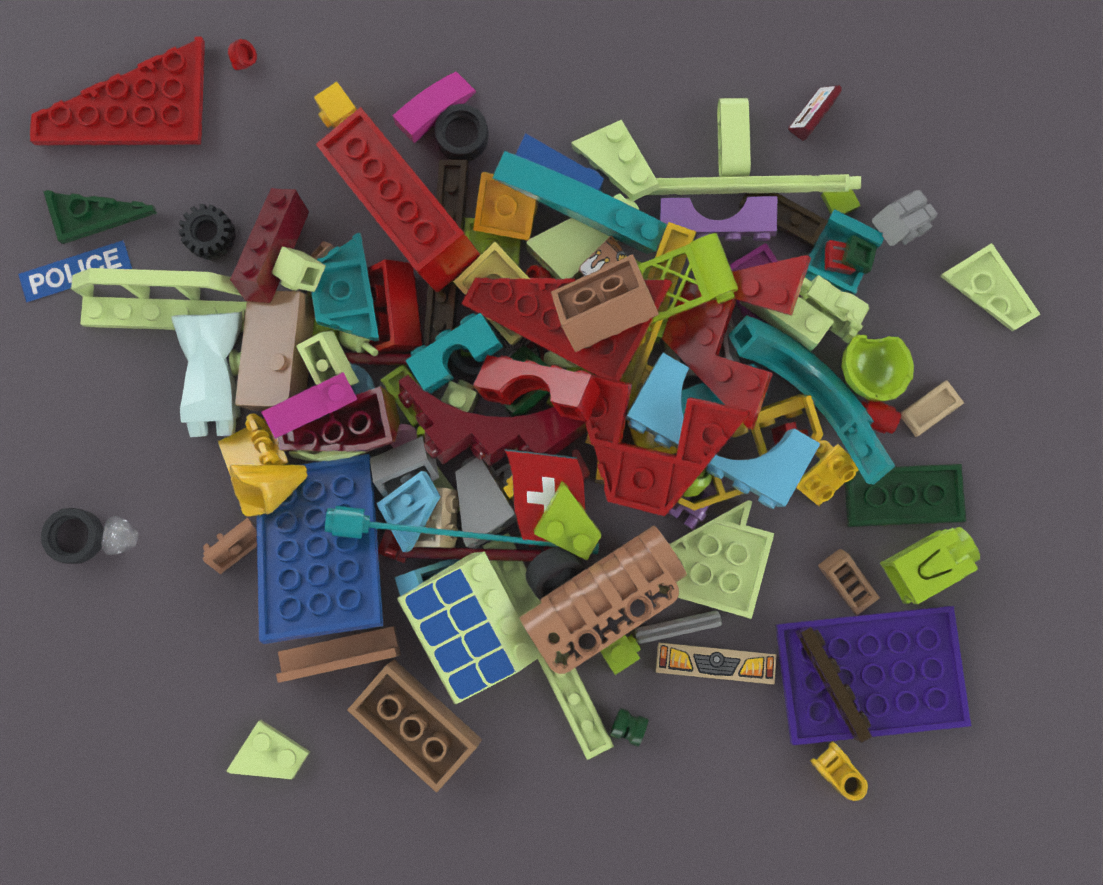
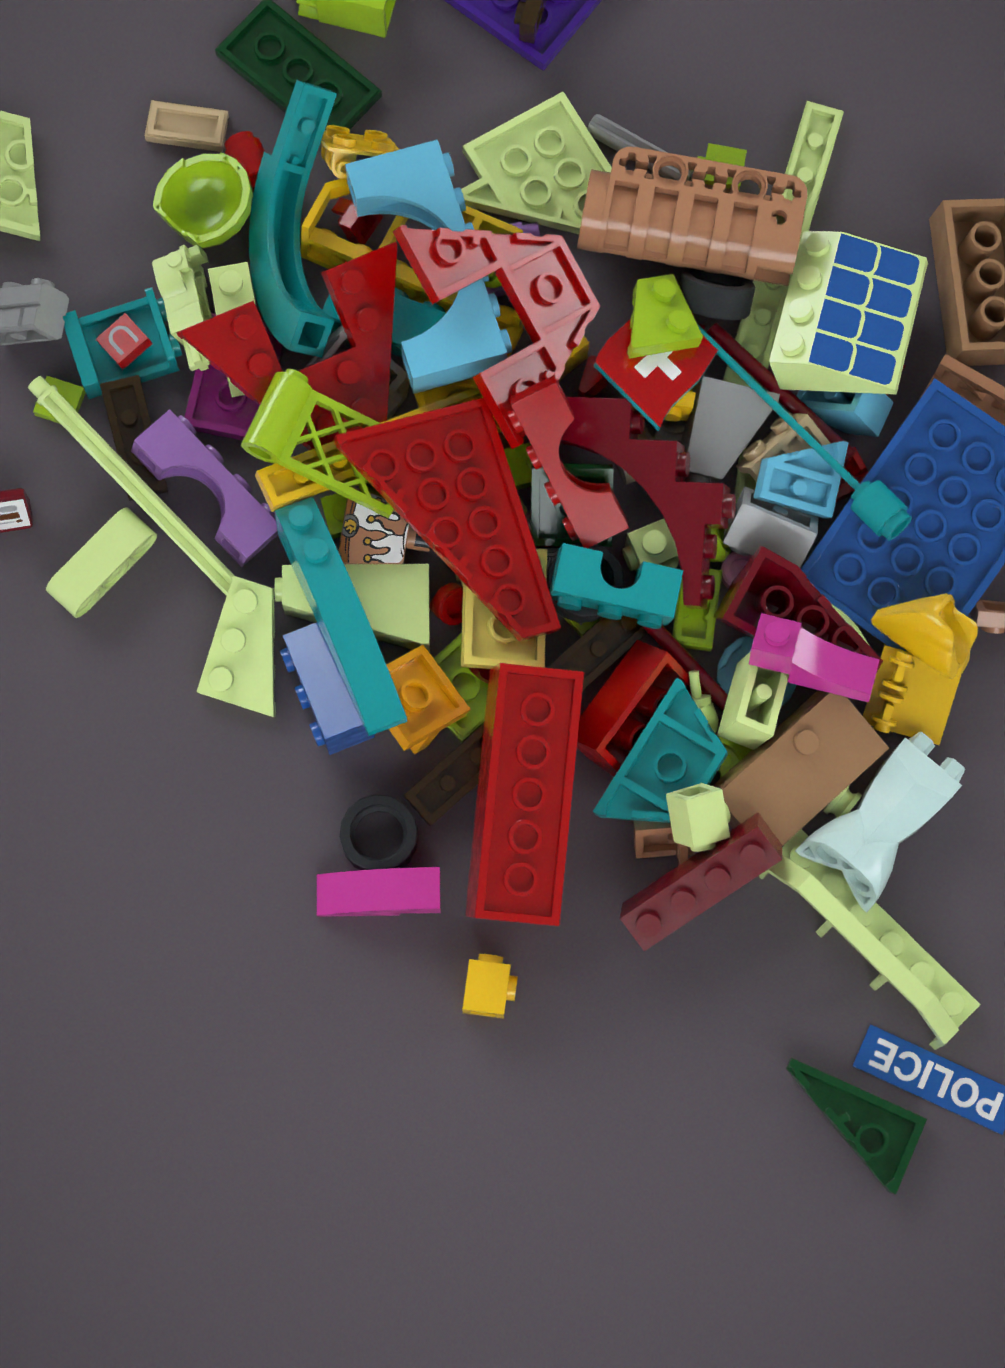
camera: 140 degrees left, 5 degrees down
(142, 107) = (702, 1201): red wing -> none
(198, 218) = (774, 966): black tyre -> none
(242, 54) = (534, 1154): red tile -> none
(604, 303) = (424, 475): nougat slope -> none
(629, 727) = (775, 101): dark green wheel -> none
(716, 663) = (635, 87): tile -> none
(836, 567) = (428, 68): medium nougat slope -> none
(859, 254) = (104, 323): dark green tile -> none

